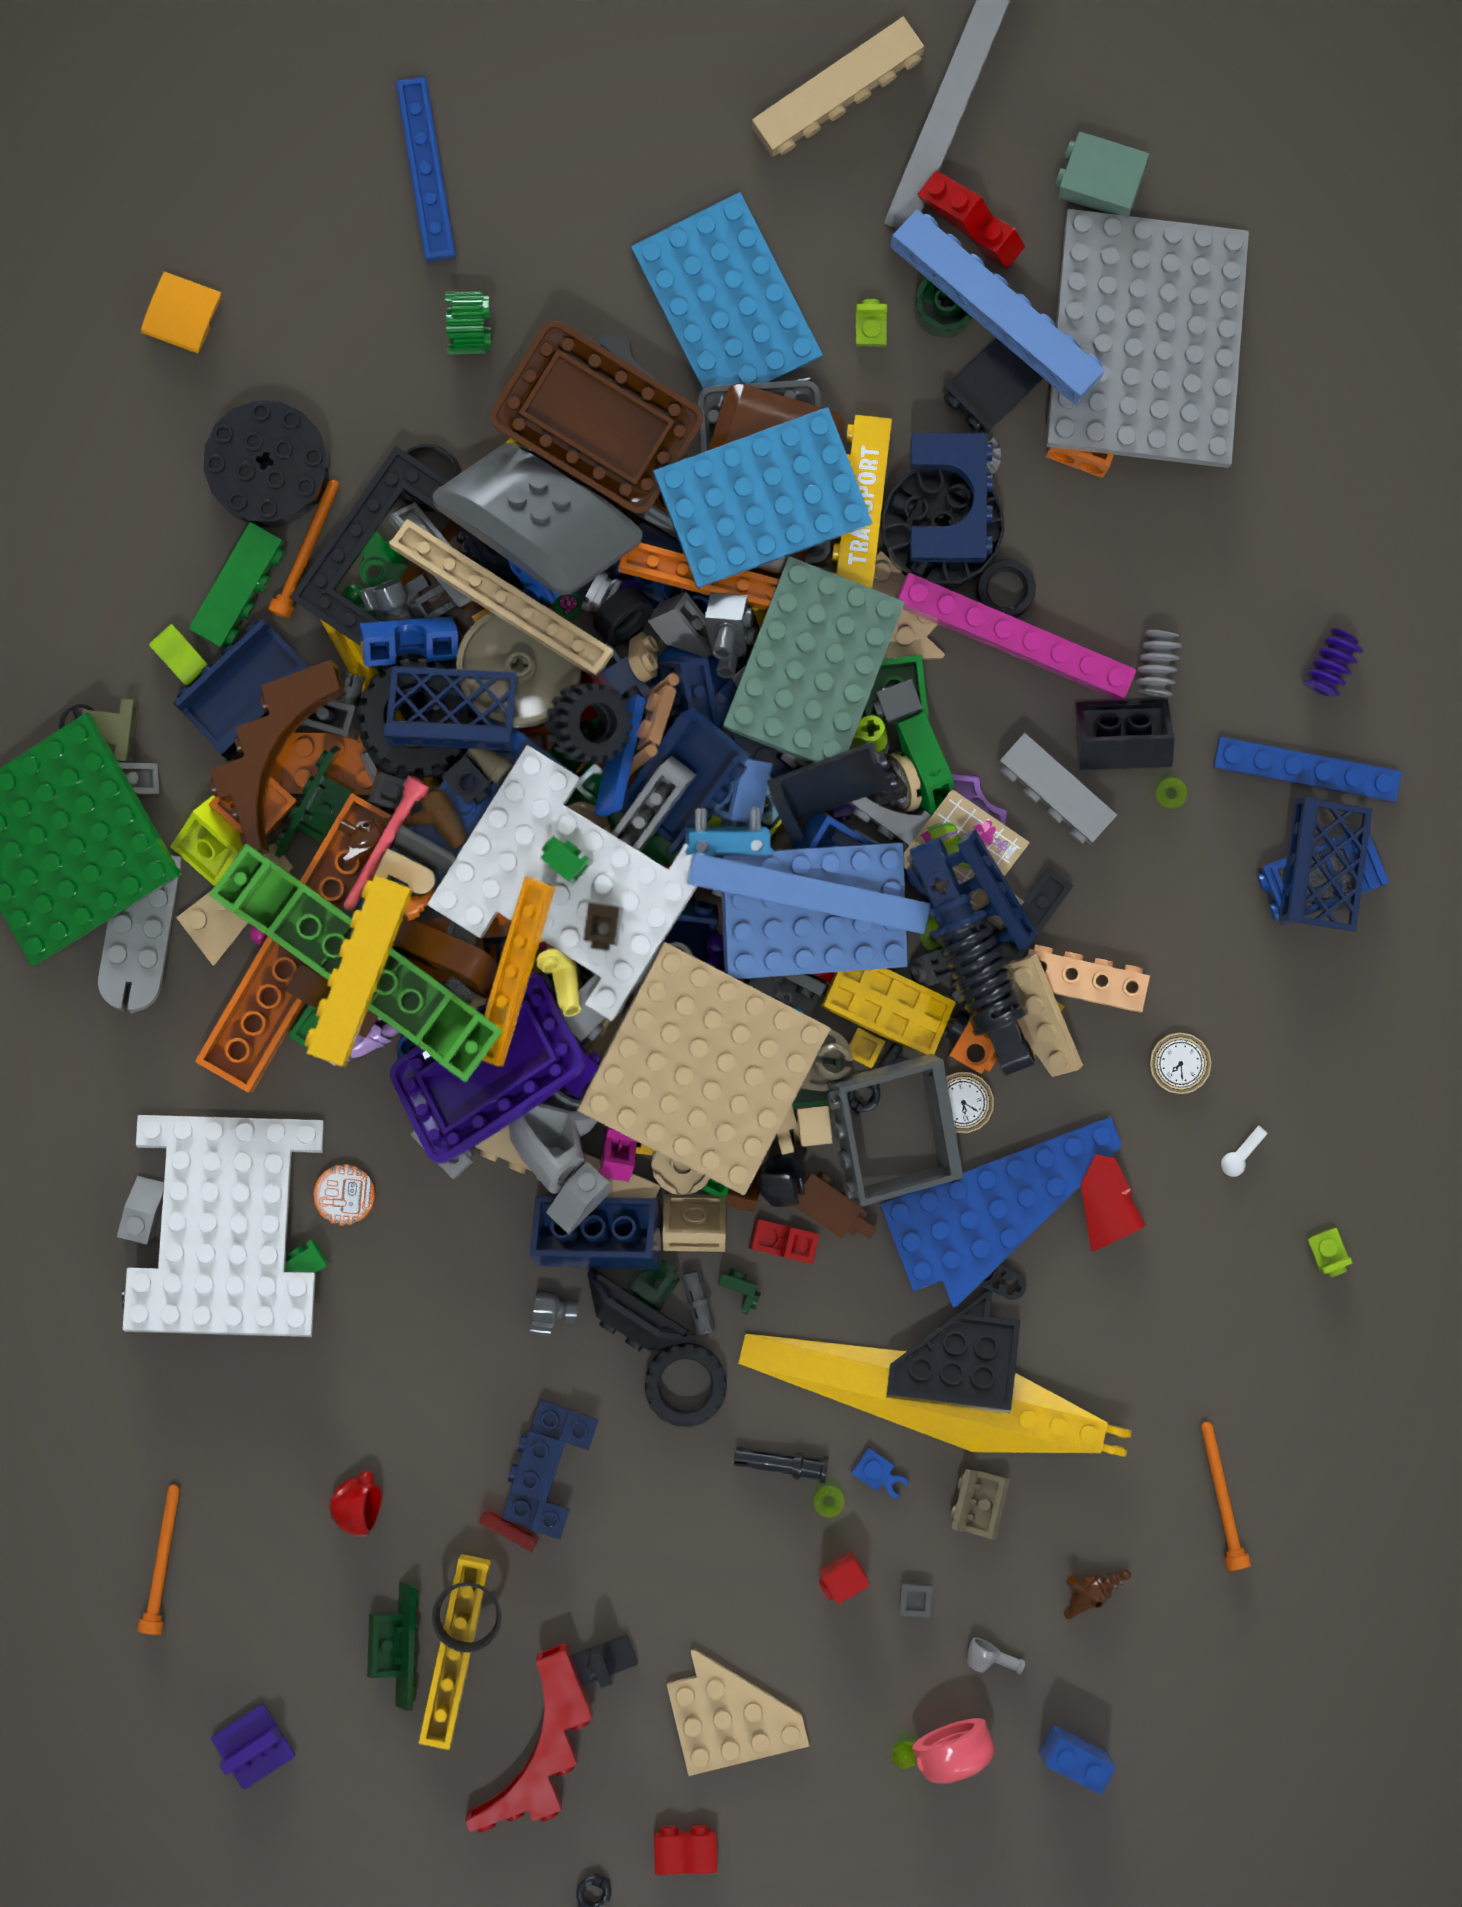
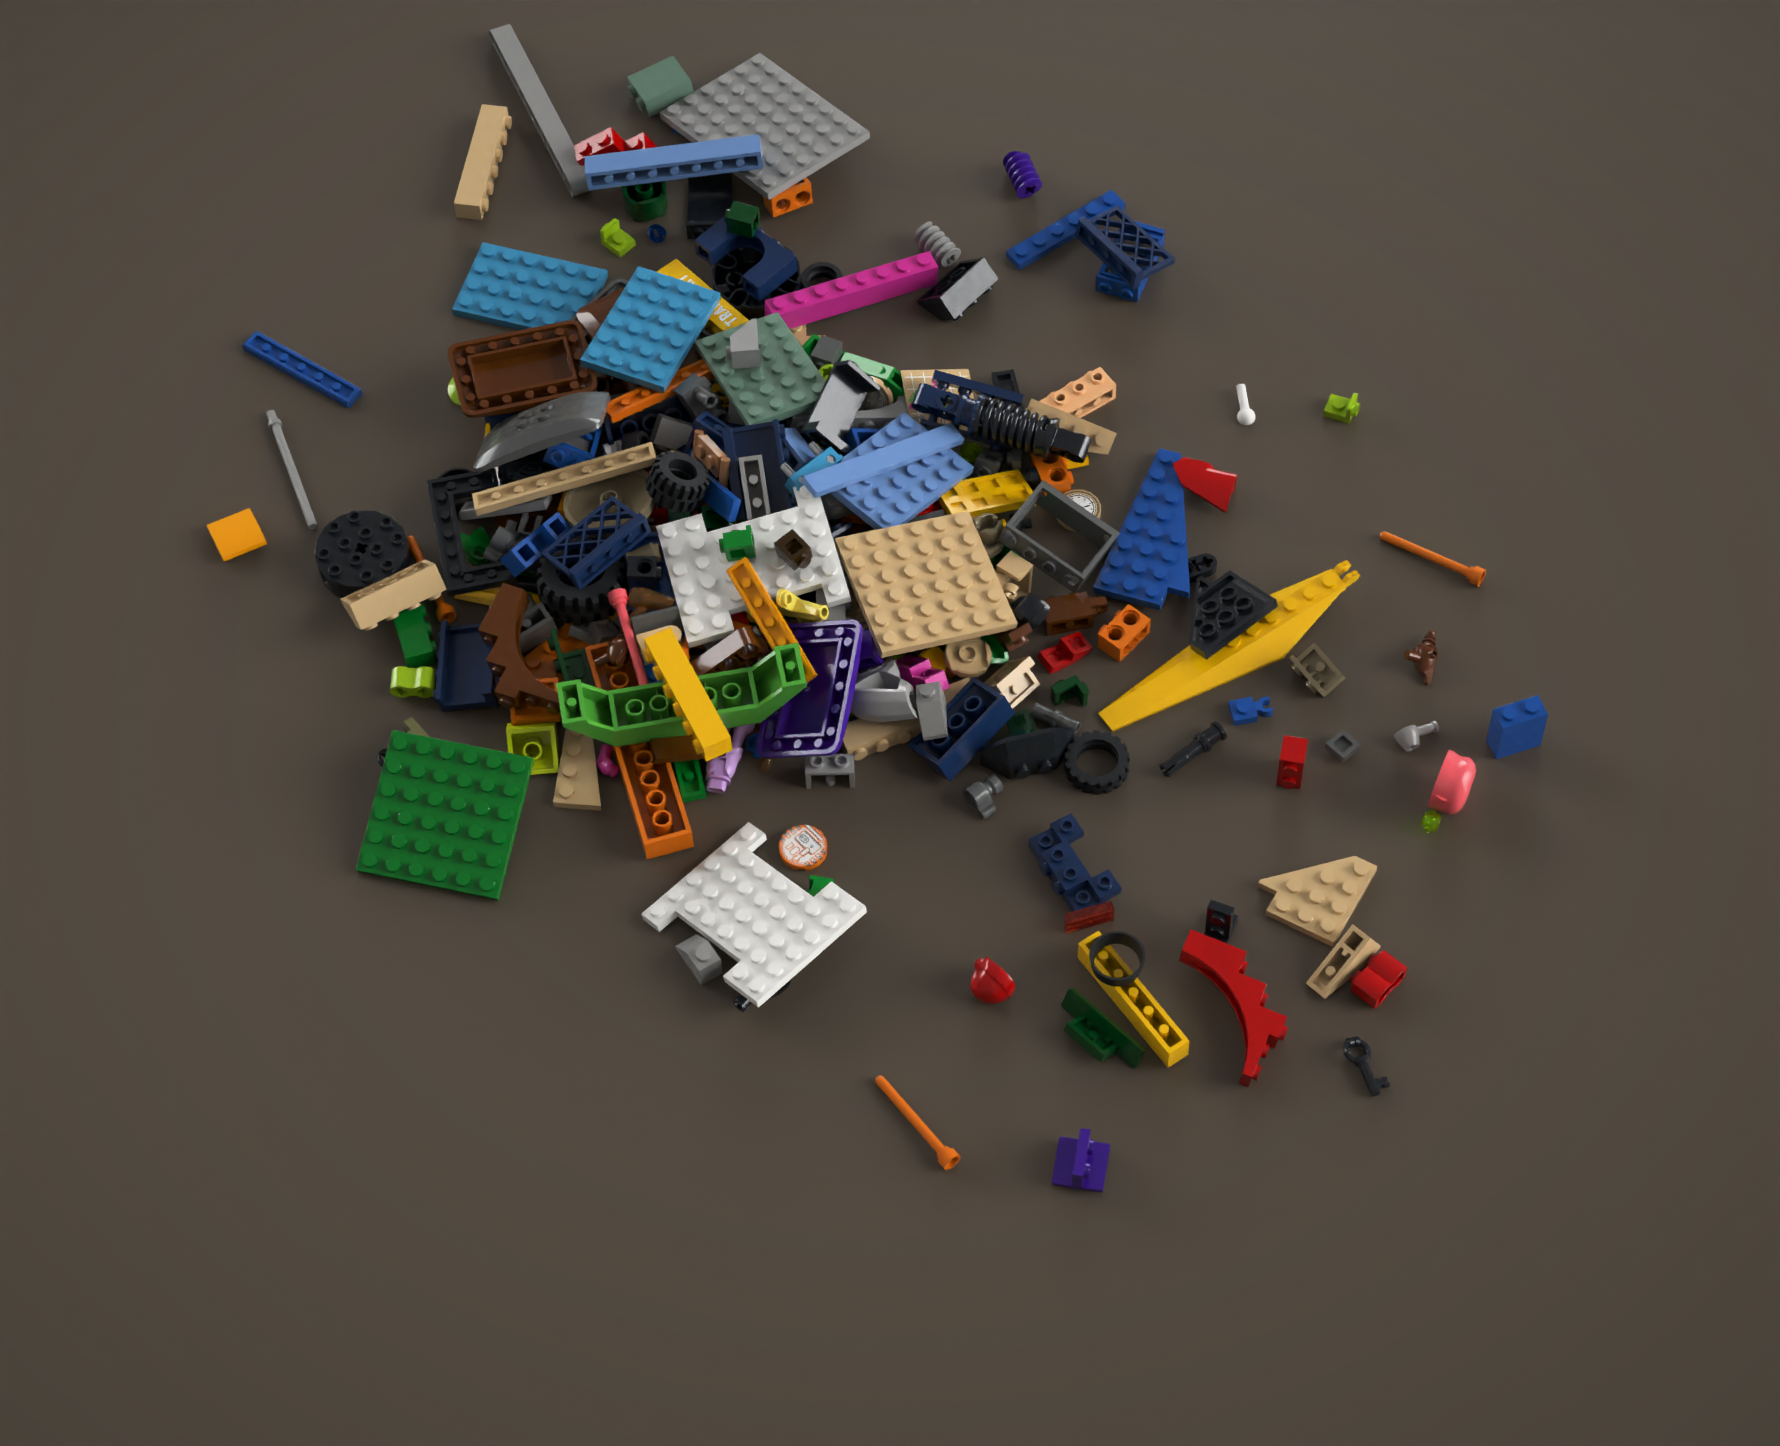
camera: 45 degrees left, 30 degrees down
(138, 949) = (550, 833): light grey plate -> none
(238, 549) = (394, 594): none -> tan slope
(338, 213) = (275, 425): none -> light grey bar
(466, 322) = (403, 402): green brick -> none
(673, 1805) = (1343, 961): none -> tan slope
(814, 627) = (744, 346): none -> light grey slope
(833, 1510) = (1239, 739): clear neon green plate -> none
(854, 1288) = (1128, 635): none -> orange brick
(913, 363) = (660, 231): none -> clear blue hinge
(975, 462) = (742, 219): none -> dark green brick
(1057, 789) = (953, 336): light grey brick -> none
(1180, 1063) = (1163, 397): tile -> none
(1181, 791) = (1012, 293): clear neon green plate -> none

